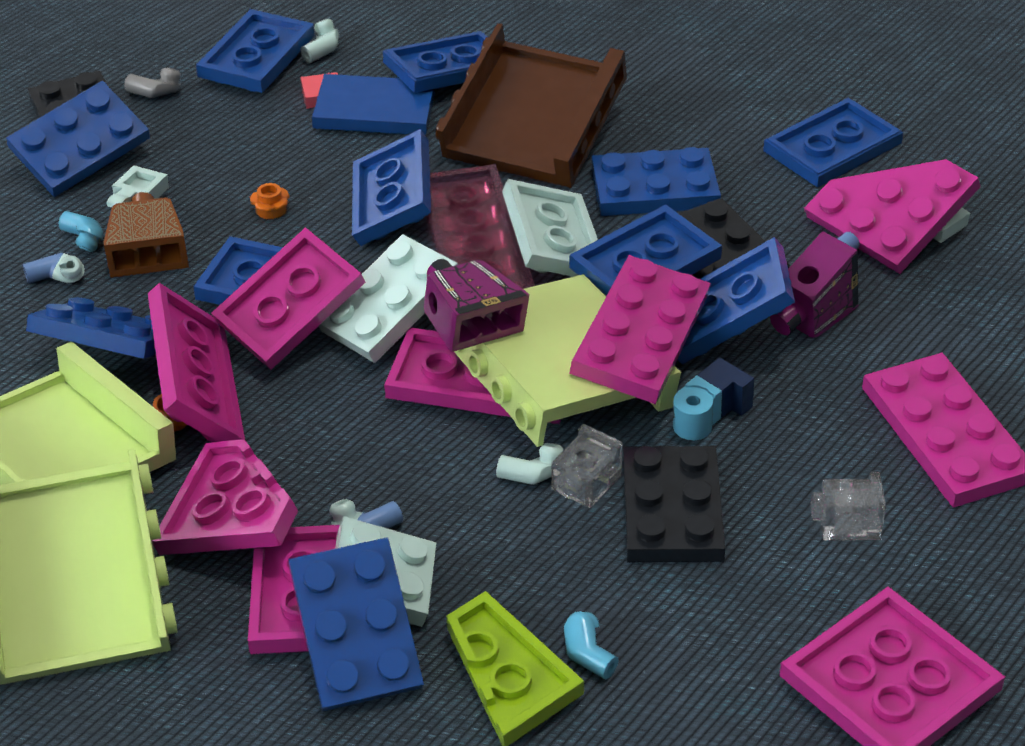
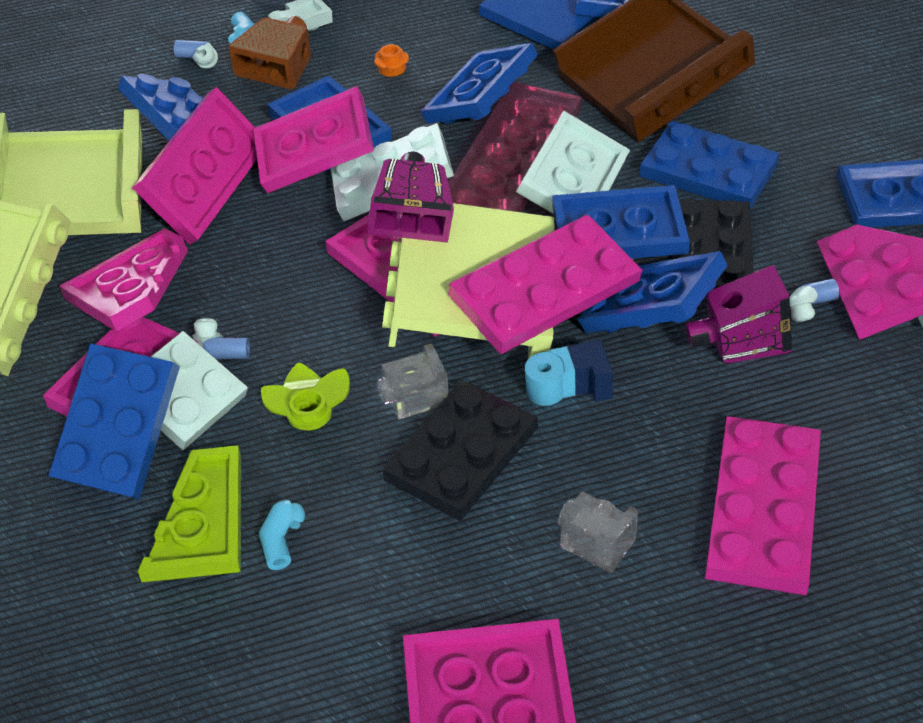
camera: 35 degrees right, 5 degrees up
(495, 528) = (306, 397): none -> lime plate
(529, 470) = (370, 361): light aqua arm -> none

